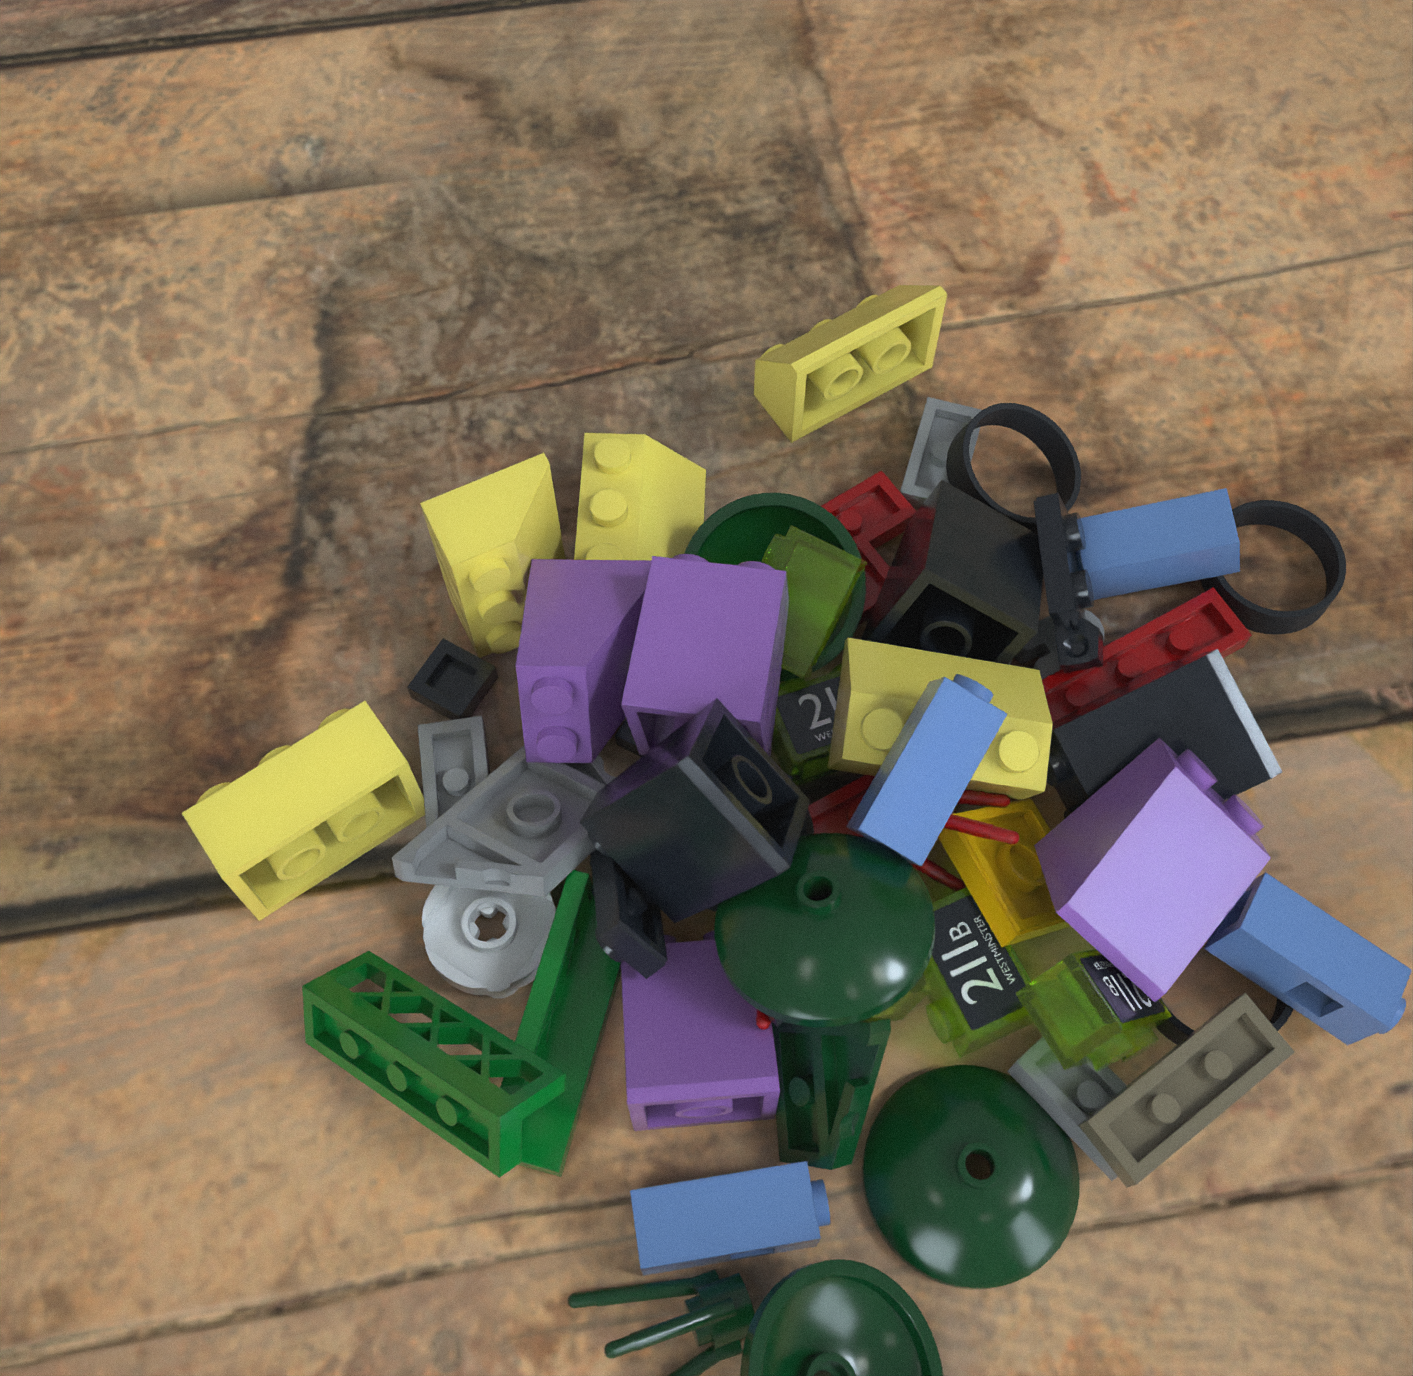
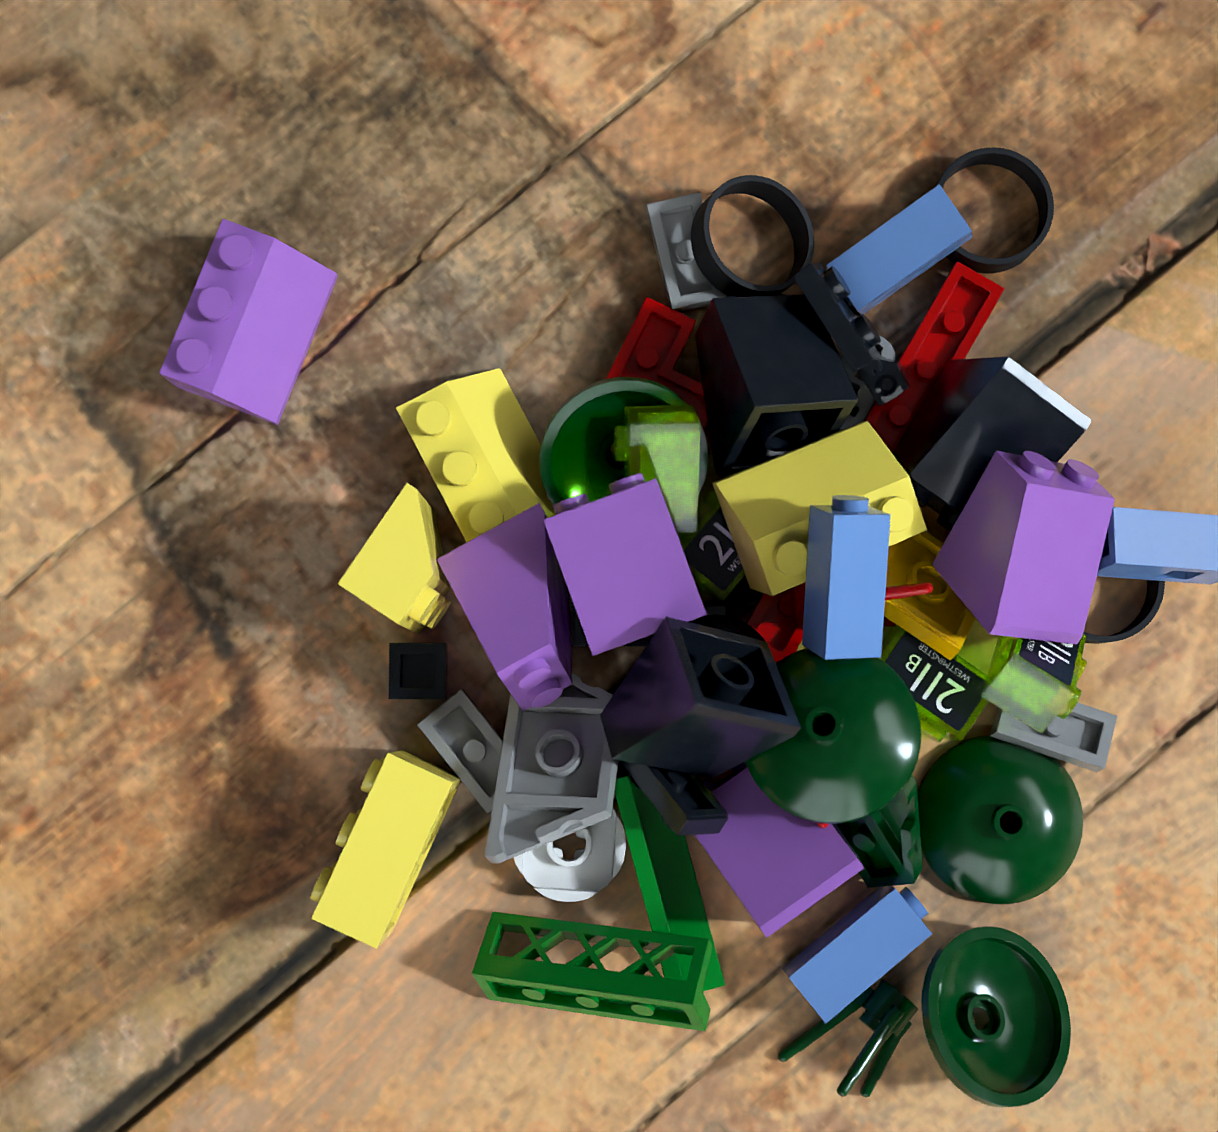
camera: 35 degrees left, 20 degrees up
(502, 320) = (248, 322): none -> medium lavender slope
(850, 358) = (561, 200): light yellow slope -> none
(1186, 1090) = (1123, 689): dark tan plate -> none

